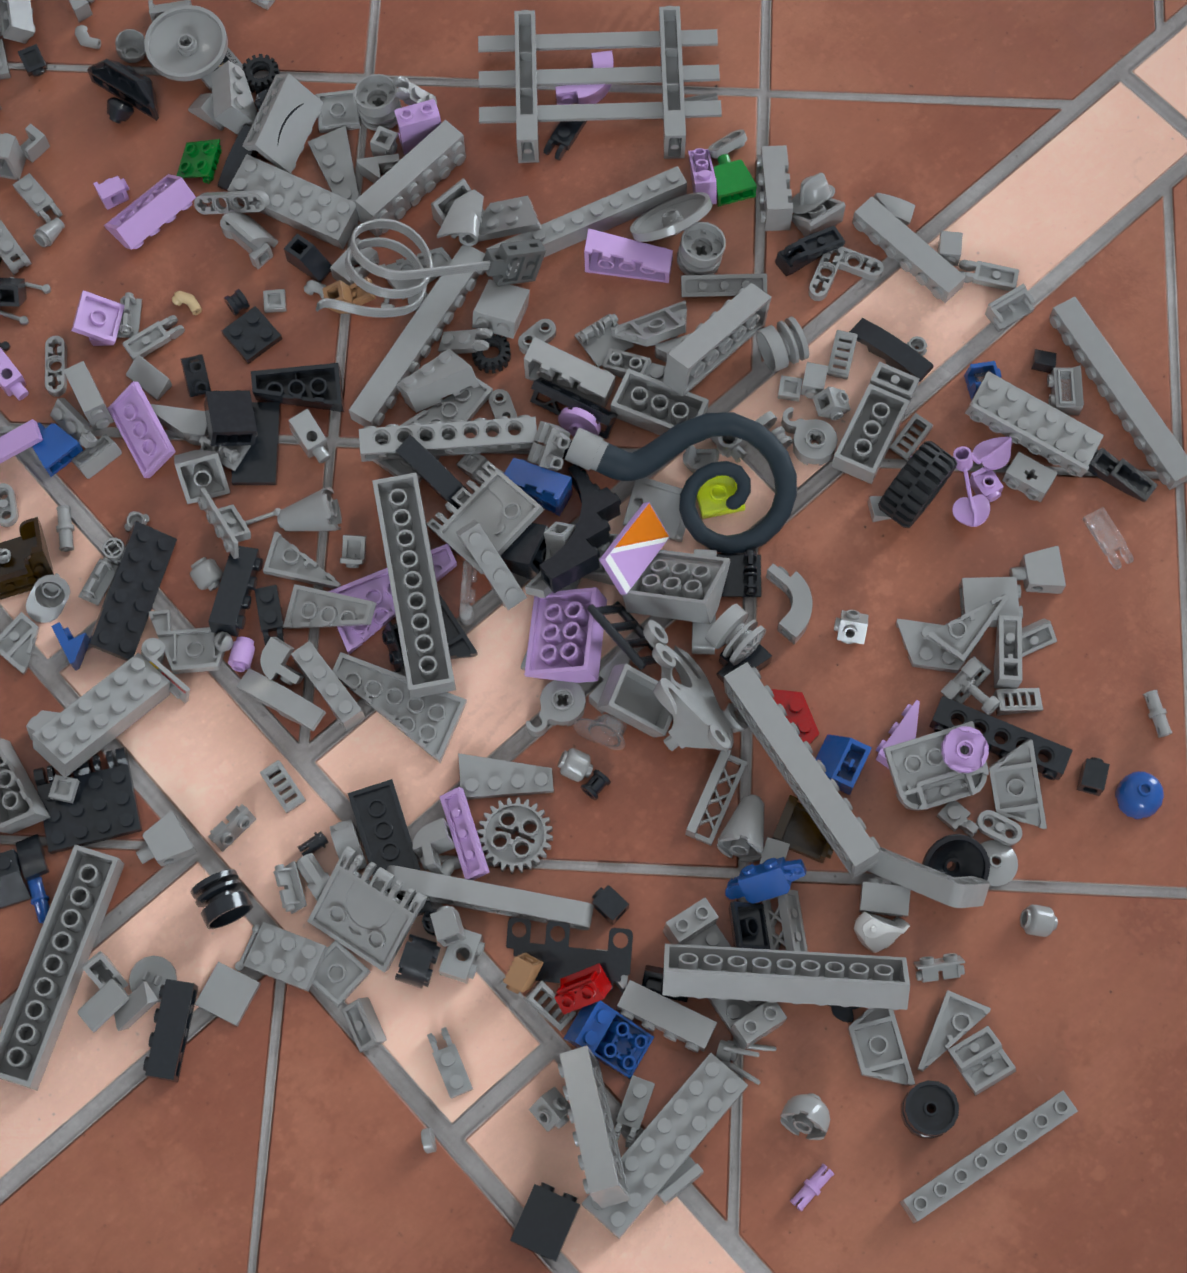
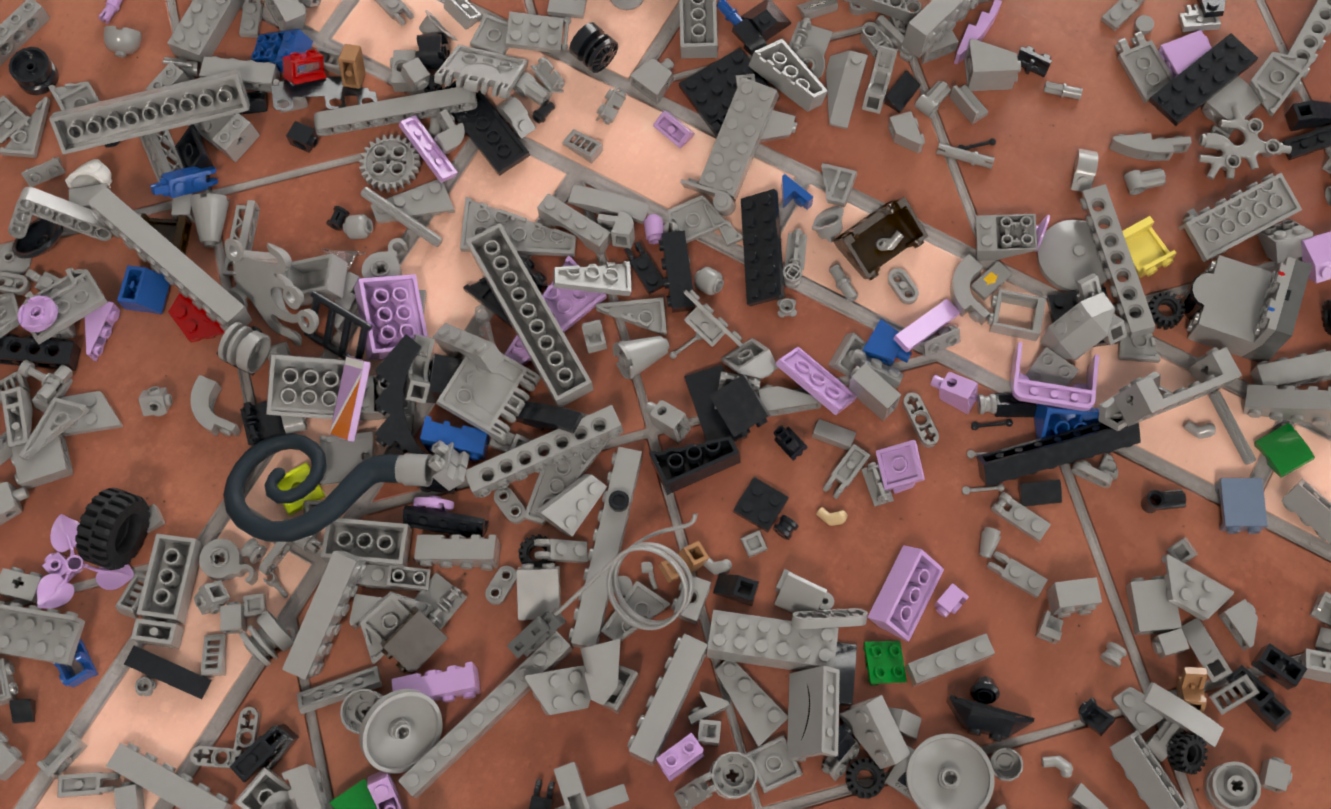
camera: 165 degrees right, 0 degrees up
(114, 141) = (949, 659): none -> light grey arch
(170, 774) = (673, 129): none -> lavender slope
(390, 365) = (618, 501): none -> black tile
(404, 998) = (432, 25): none -> light grey piece
(521, 758) = (401, 217): none -> light grey axle
(635, 298) = (413, 642): none -> panel
(763, 403) = (275, 583): none -> light grey hand

